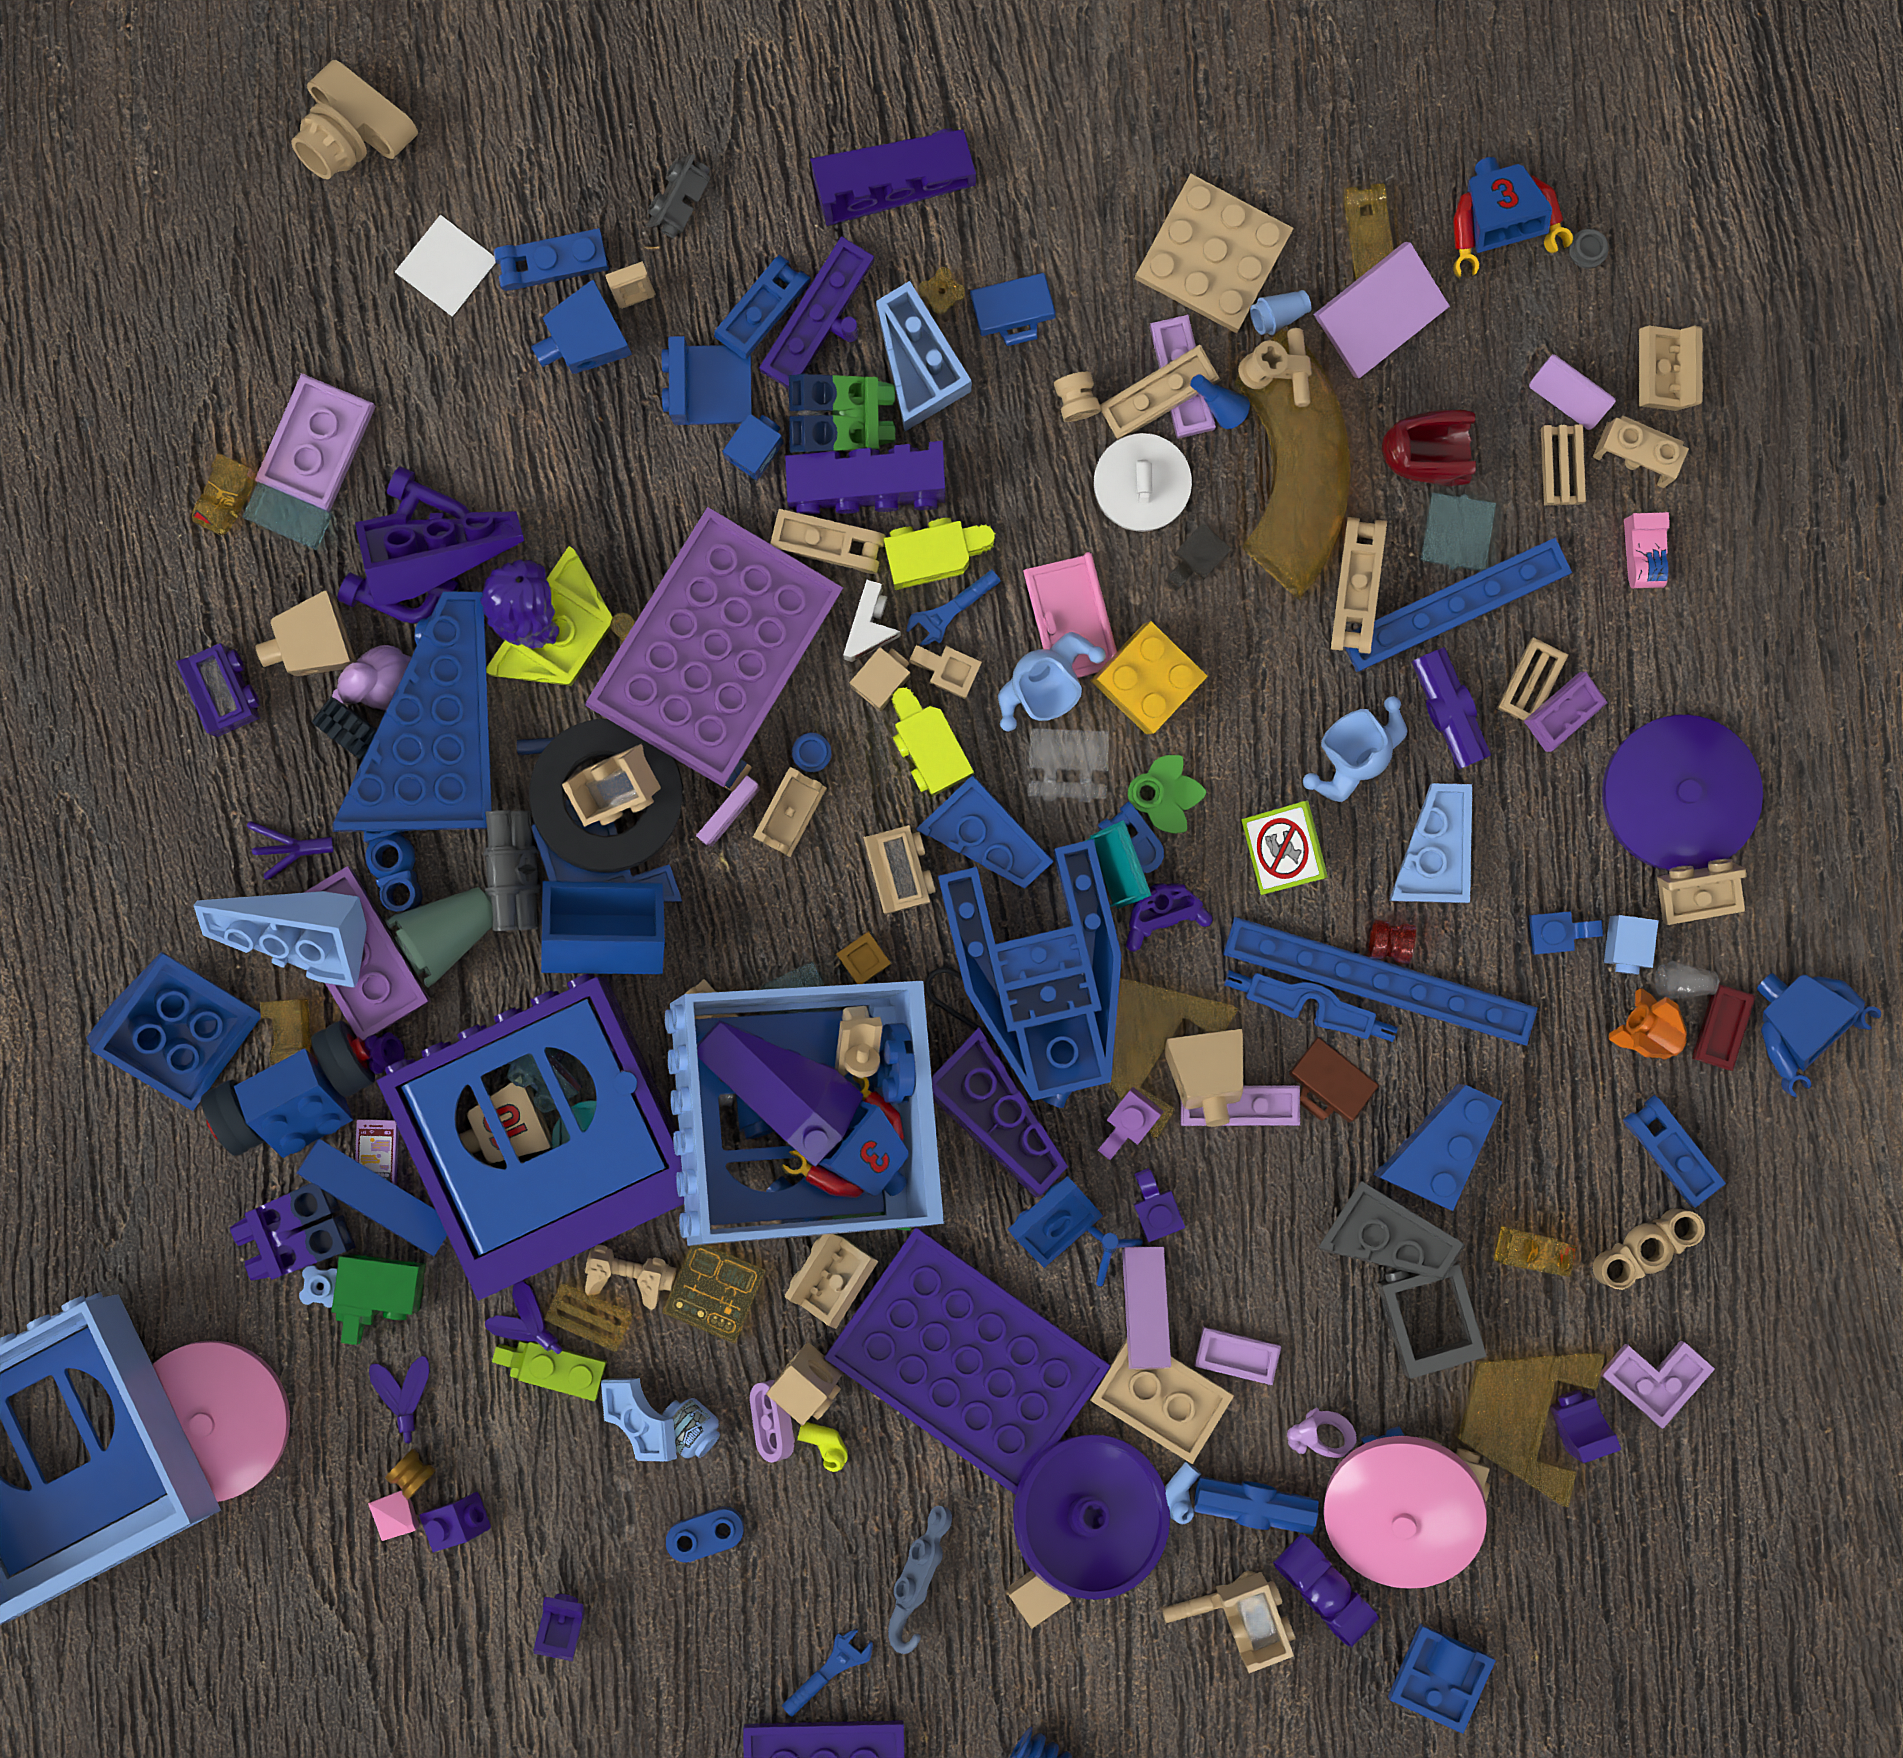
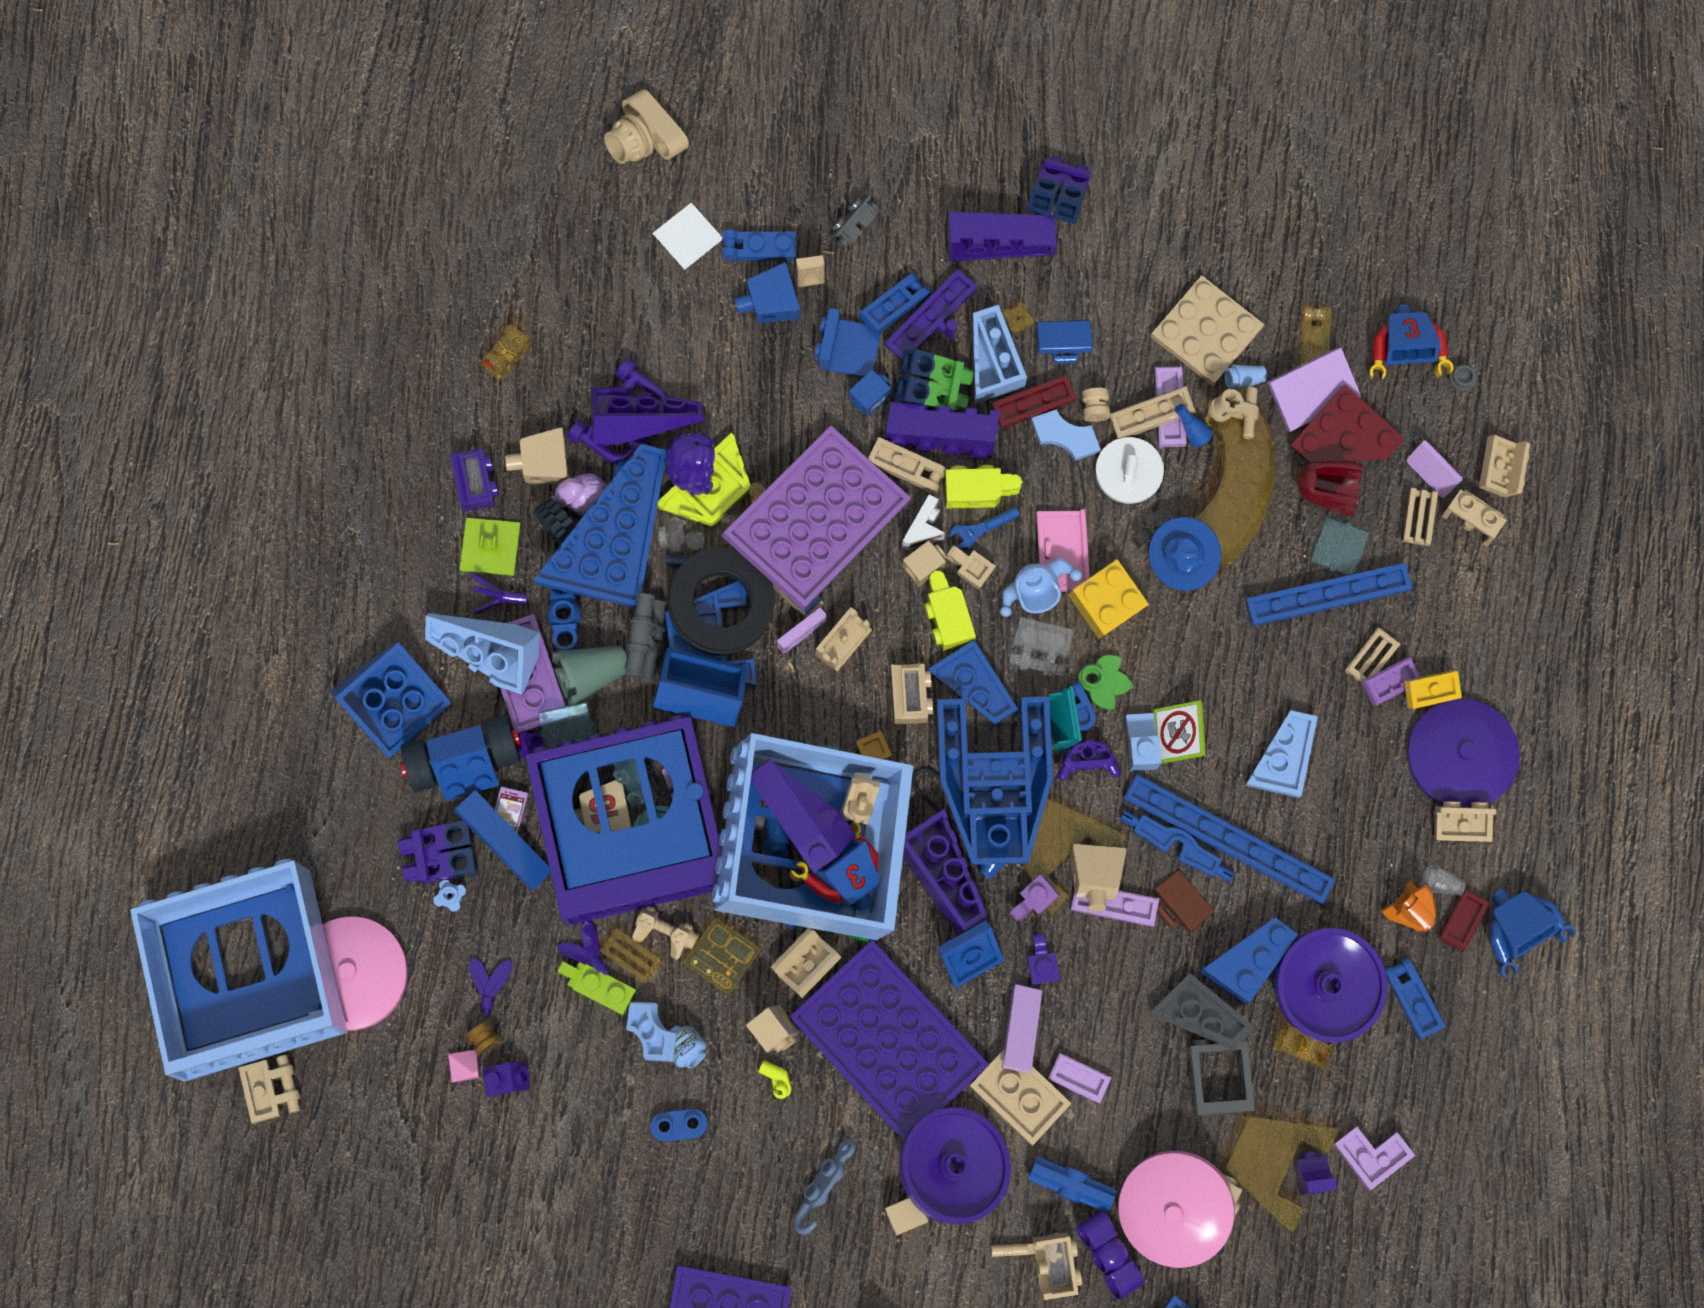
camera: 10 degrees right, 10 degrees down
(123, 1610) = (260, 1089): none -> tan plate
(265, 779) = (490, 546): none -> lime piece
(287, 516) = (544, 376): clear light blue plate -> none
(290, 1027) = (470, 710): clear yellow leg -> none
(315, 442) = (574, 332): lavender tile -> none
(374, 1285) = (486, 901): green hinge -> none
(429, 1017) = (565, 724): none -> clear light blue piece
(520, 715) = (673, 537): none -> clear animal
(559, 1627) = (564, 1166): dark purple bracket -> none
(612, 786) = (728, 593): tan window -> none
(771, 1425) = (743, 1055): lavender plate -> none
(811, 752) = (867, 603): blue plate -> none
(842, 1657) = (757, 1233): blue piece -> none
(896, 1066) = (882, 821): blue plate -> none
(967, 74) = (1061, 180): none -> dark blue hips
(988, 410) = (1034, 401): none -> dark red plate
(1059, 453) = (1054, 430): none -> light blue tile
(1110, 1244) = (1005, 977): blue plant -> none
(1178, 1493) = (1018, 1166): light blue arm -> none
(1235, 869) = (1142, 742): none -> light blue arch
(1244, 589) = (1185, 553): none -> blue hat
(1306, 1435) = (1116, 1141): lavender piece -> none
(1358, 749) = (1243, 677): light blue piece -> none
(1359, 584) = (1264, 566): tan plate -> none
(1392, 941) = (1242, 812): clear red wheel -> none
(1438, 364) = (1346, 432): none -> dark red plate
(1451, 708) = (1312, 663): dark purple piece -> none
(1557, 933) = (1357, 831): blue plate -> none
(1559, 1160) = (1331, 985): none -> dark purple dish
(1625, 712) = (1432, 689): none -> yellow plate
(1630, 943) = (1408, 847): light blue brick -> none
(1647, 549) = (1467, 583): bright pink leg -> none
(1666, 1245) = (1396, 1058): tan piece -> none

